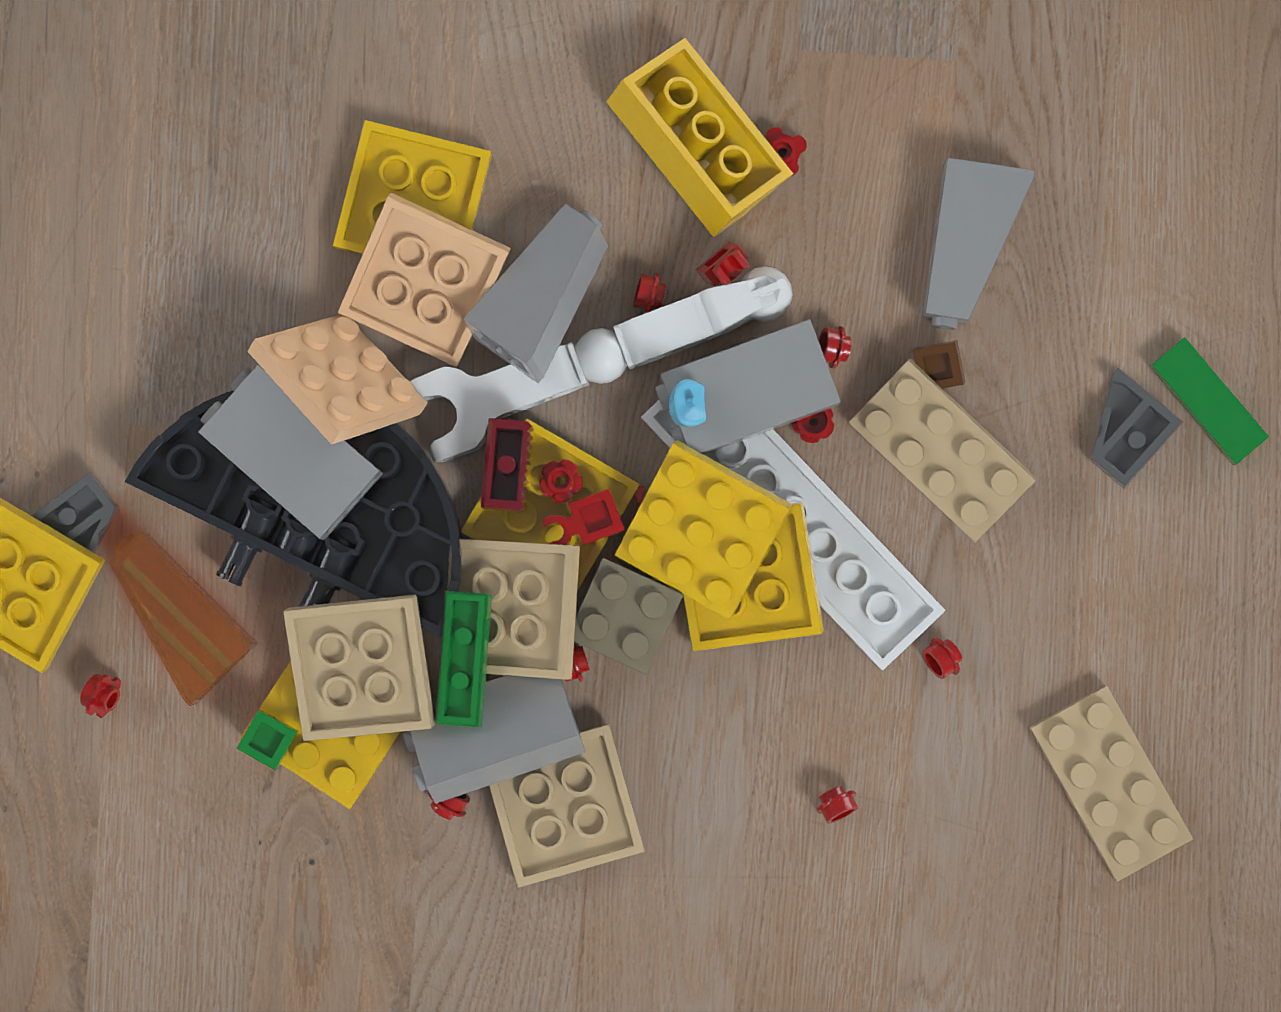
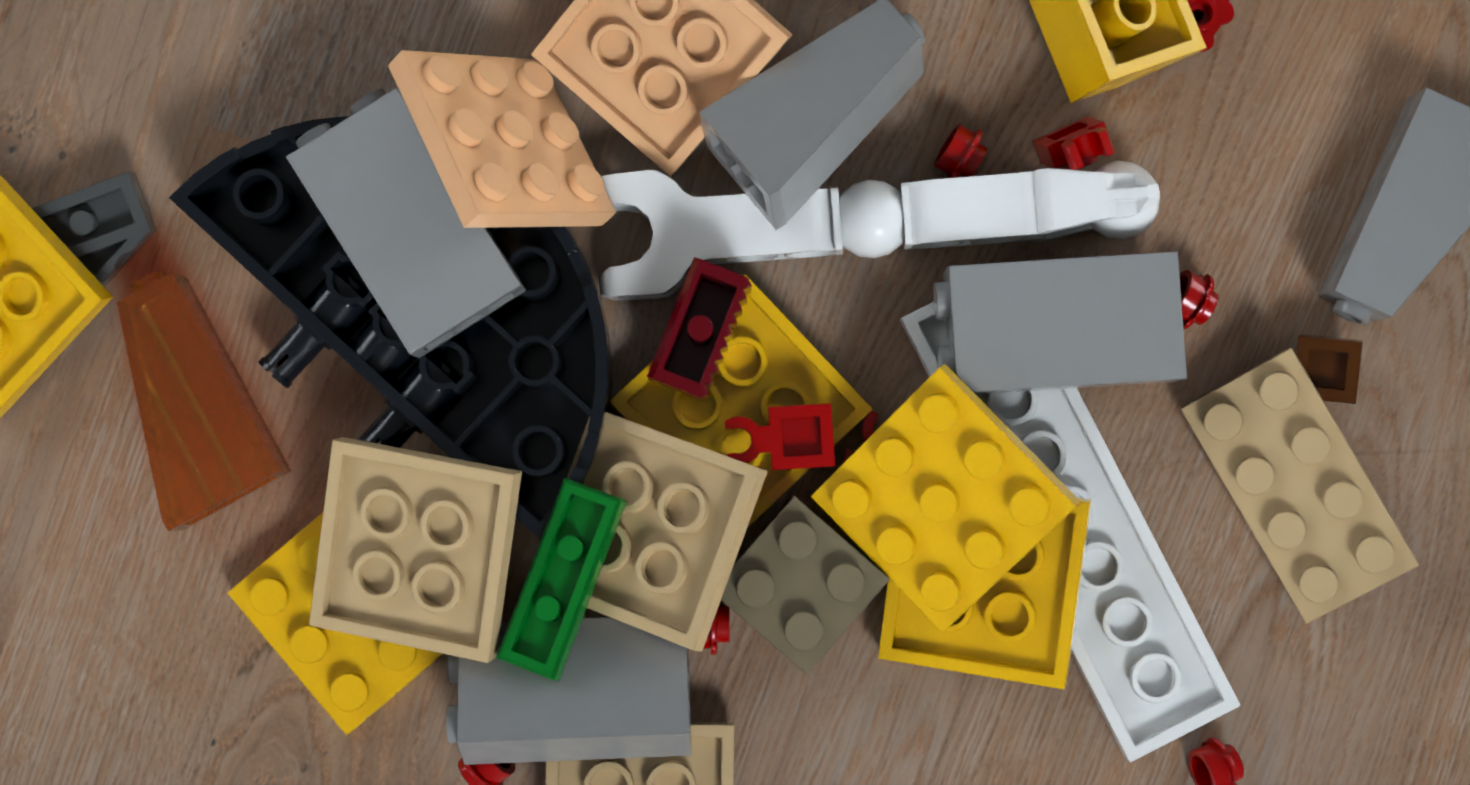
camera: 15 degrees right, 0 degrees up
(100, 694) = (55, 478): red plate -> none
(267, 739) = (260, 609): green plate -> none
(563, 492) = (783, 378): red plate -> none
(688, 403) = (976, 318): medium azure piece -> none
(813, 433) = (1128, 409): red plate -> none

